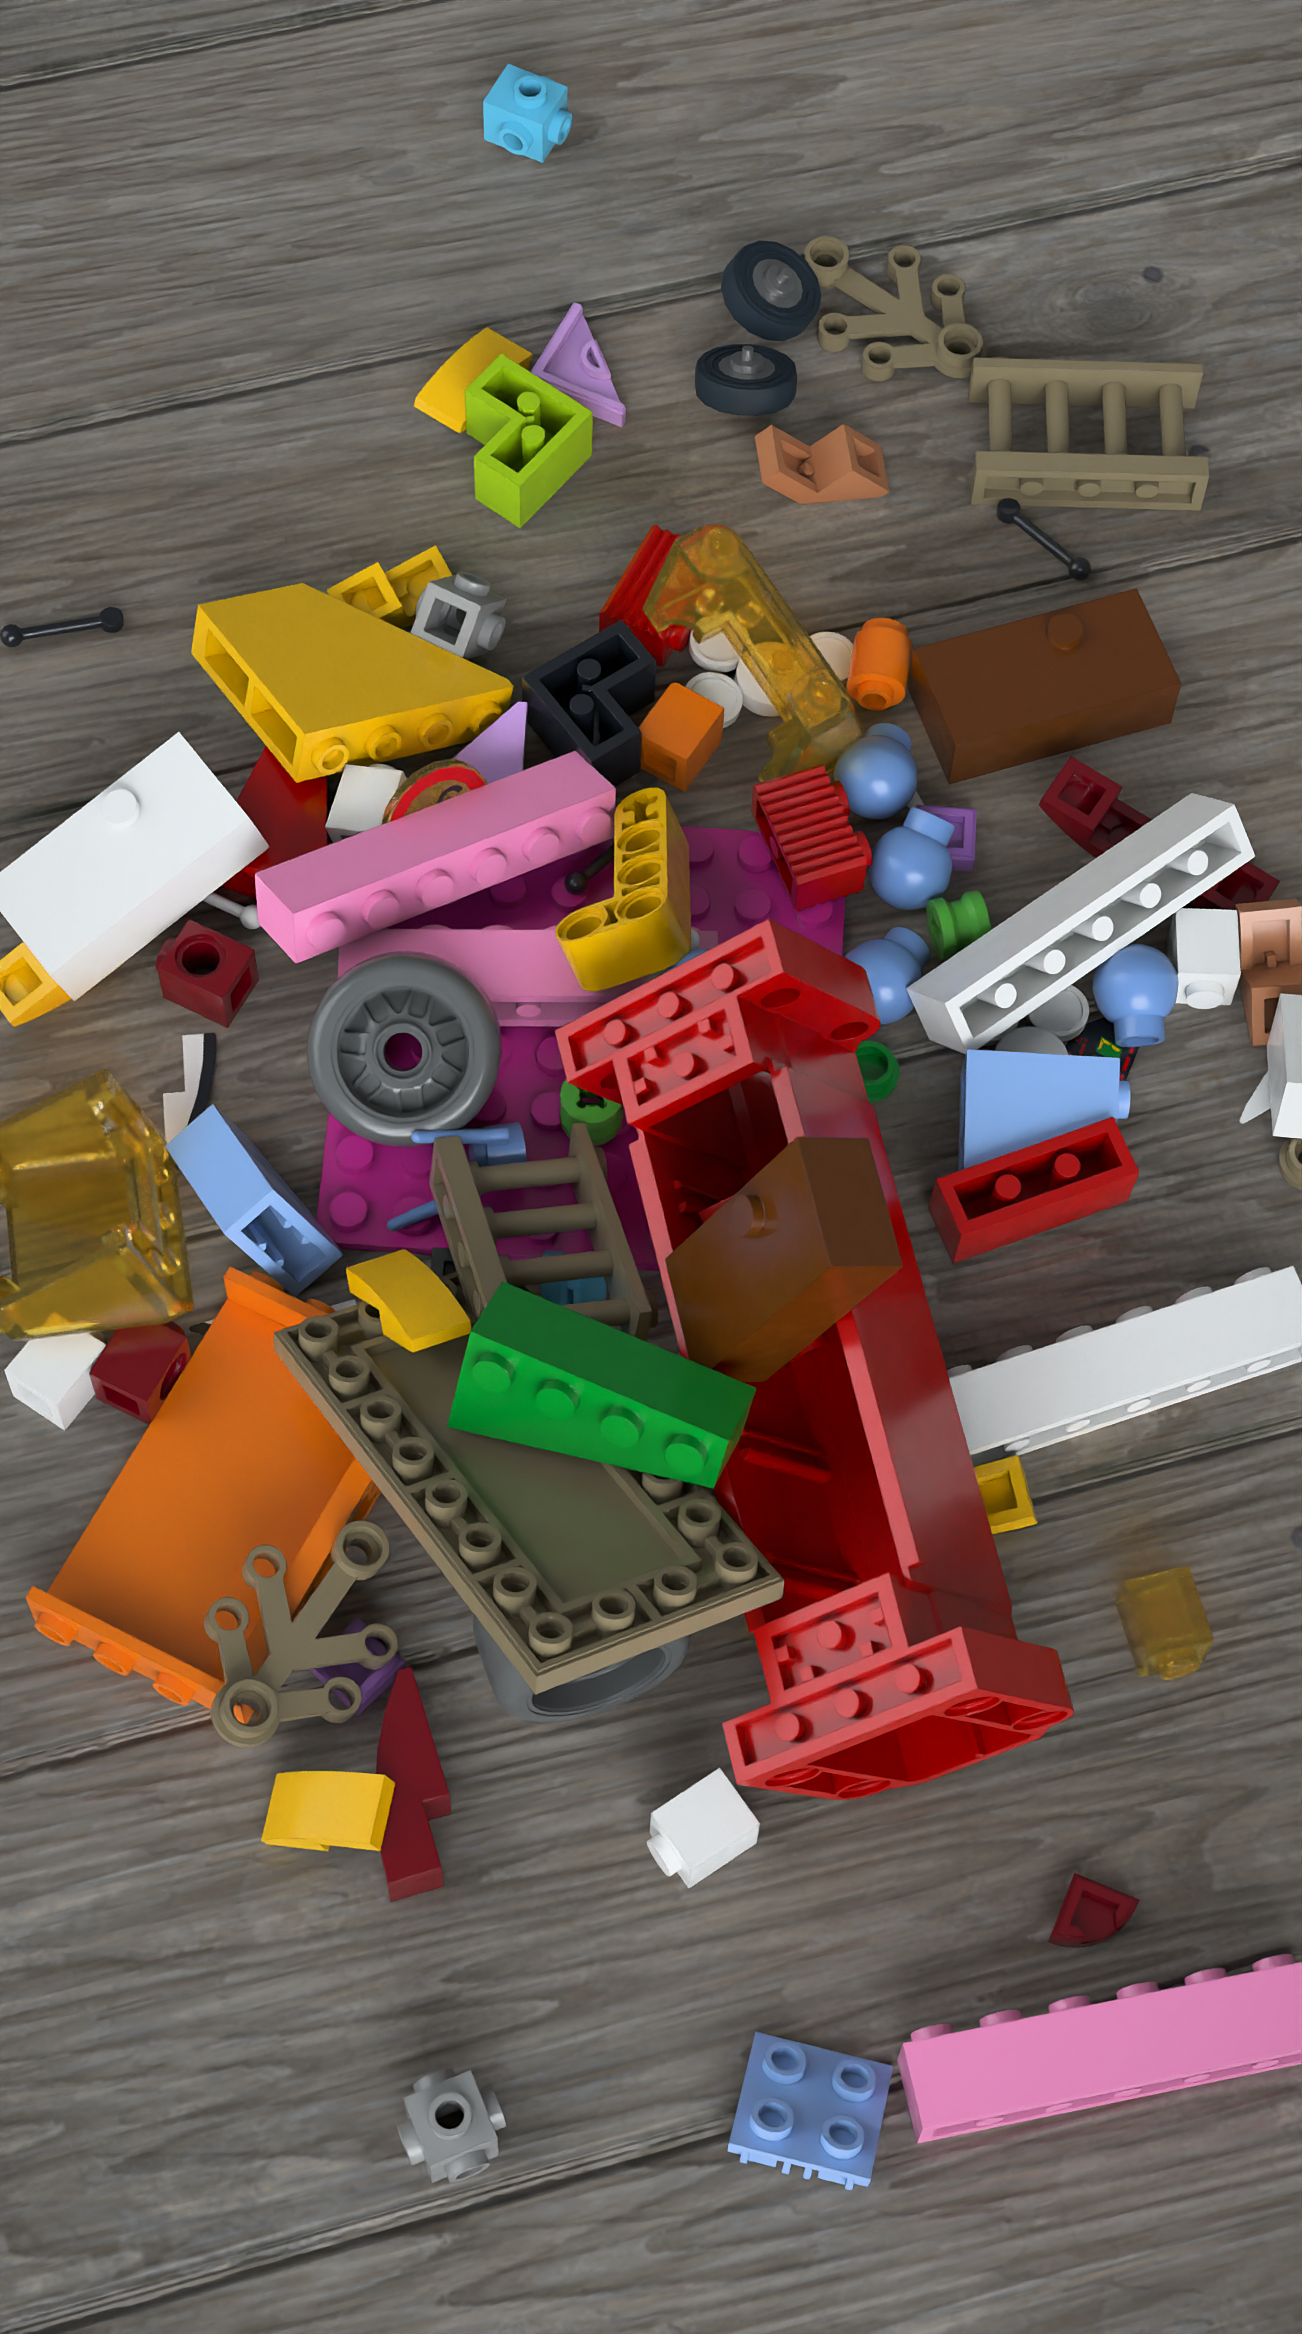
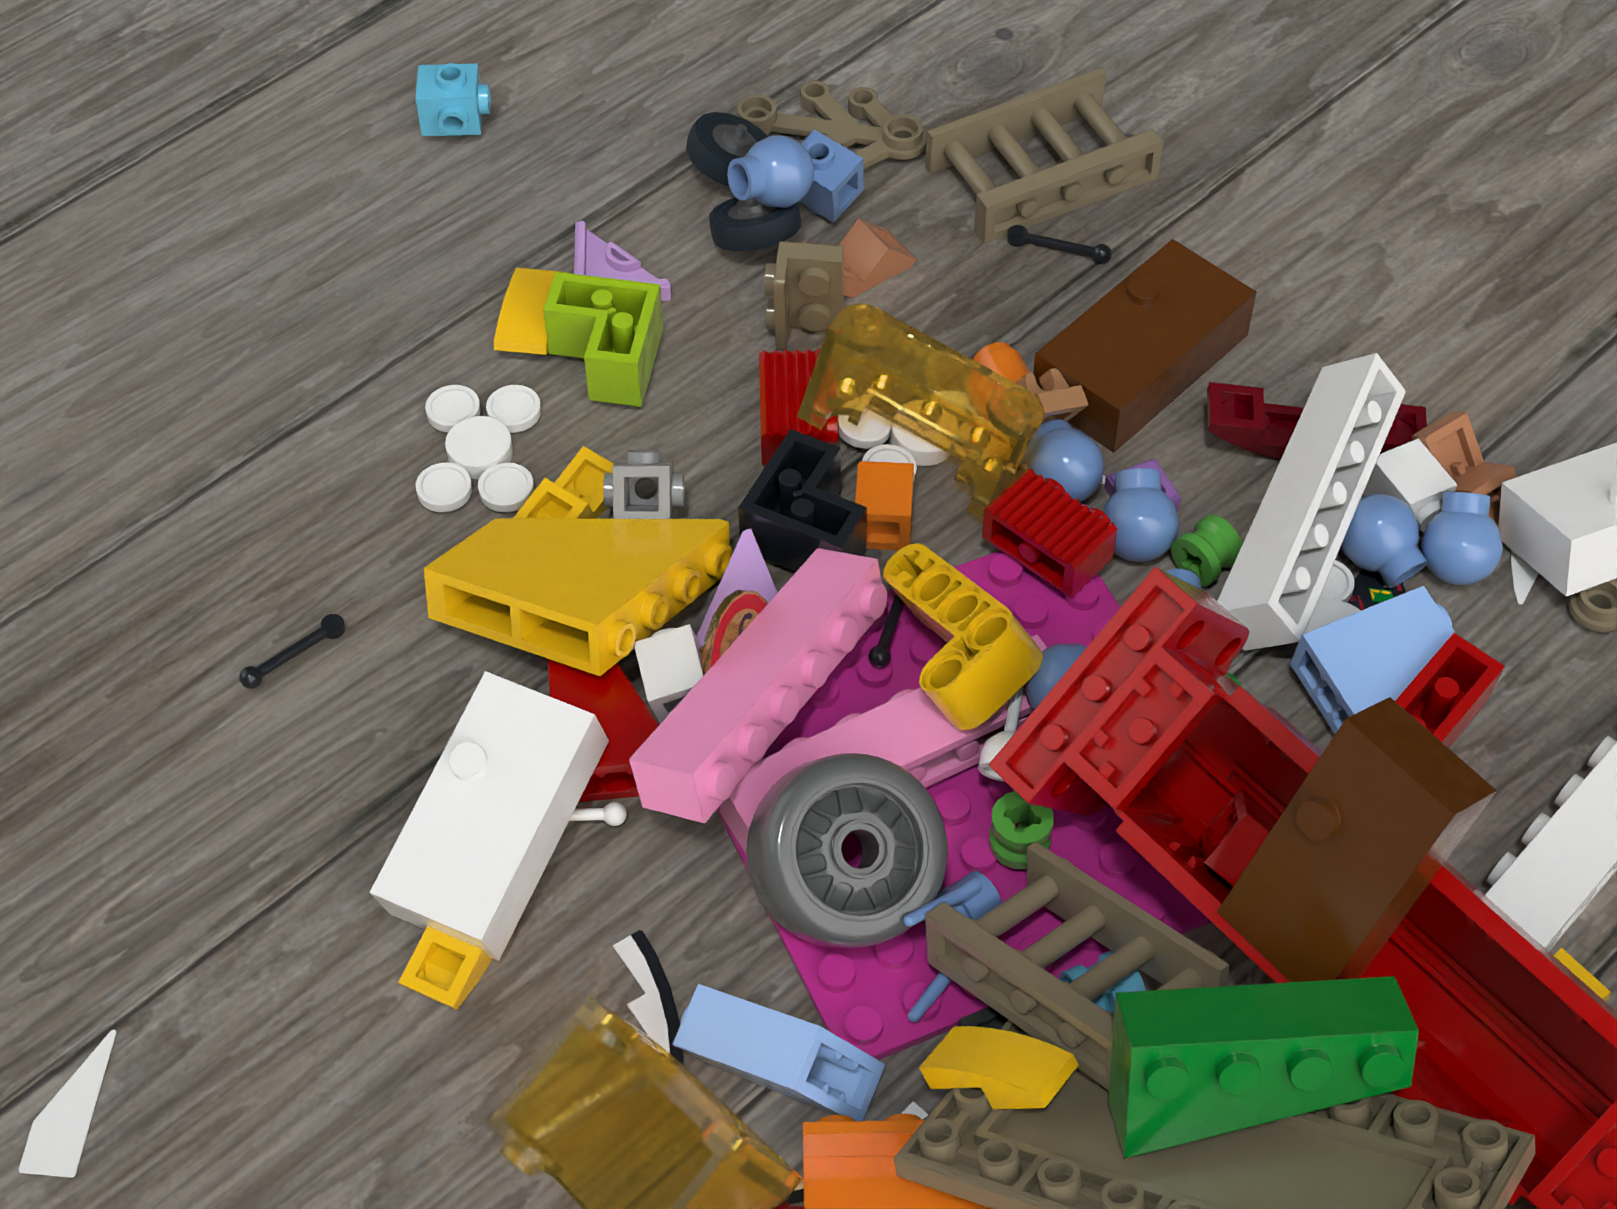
camera: 25 degrees left, 10 degrees down
(212, 995) = (614, 900): dark red brick -> none
(343, 501) = (478, 448): none -> white piece
(737, 477) = (805, 288): none -> dark tan bracket
(774, 340) = (772, 172): none -> medium blue piece
(841, 360) = (836, 177): none -> medium blue brick
(883, 705) = (1056, 396): none -> medium nougat tile
(1210, 1032) = (1462, 540): none -> medium blue piece

